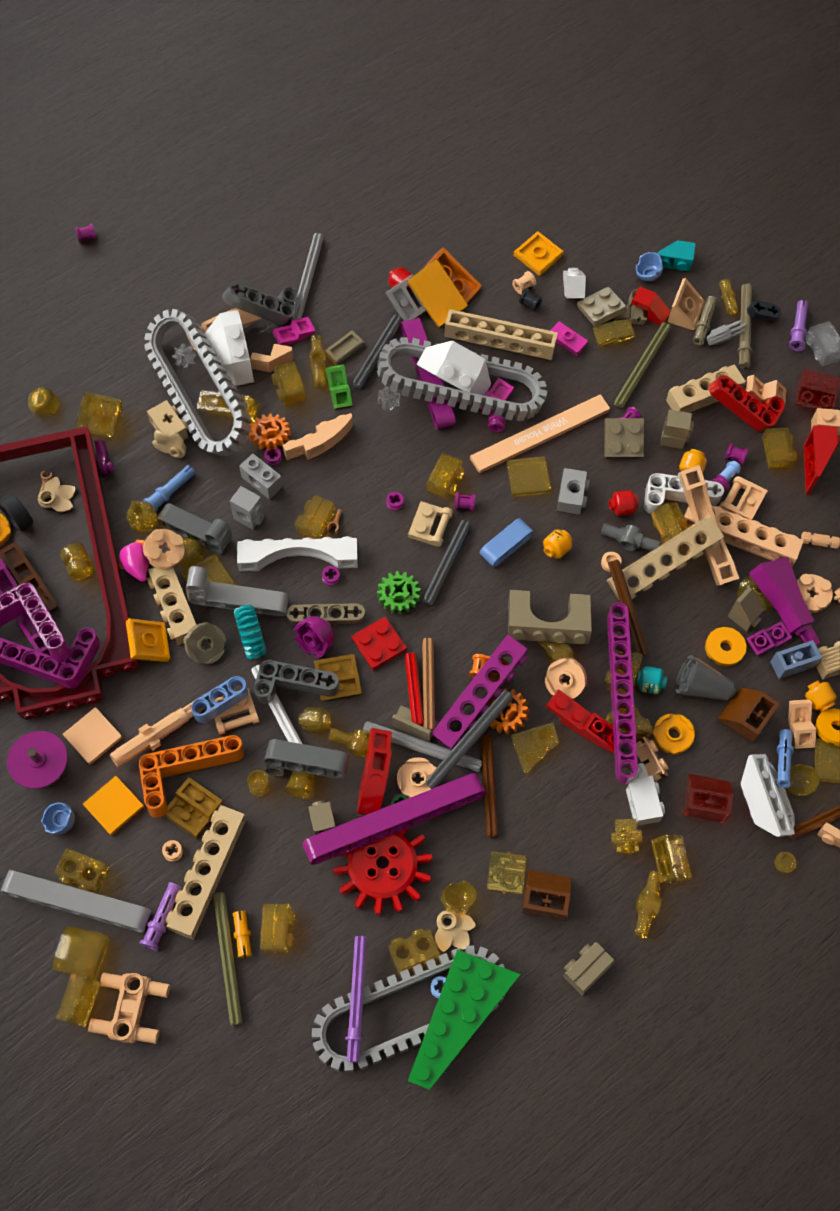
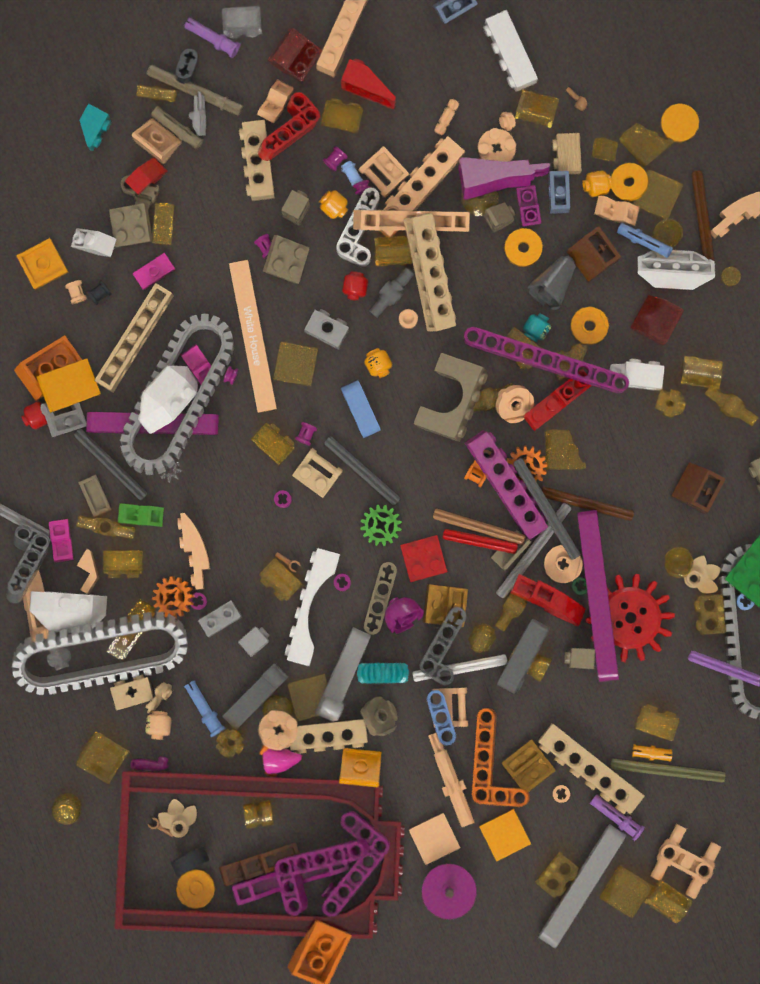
camera: 70 degrees left, 20 degrees up
(58, 818) = (505, 885): medium blue hair -> none
(143, 452) = (158, 725): none -> light nougat head
(256, 778) = (525, 703): clear yellow wheel -> none
(506, 872) = (666, 514): clear yellow piece -> none
(625, 598) = (465, 323): reddish brown axle -> none
(642, 365) = (207, 208): olive axle -> none
(648, 751) = (600, 353): light nougat hinge -> none
(649, 266) = (99, 160): medium blue hair -> none

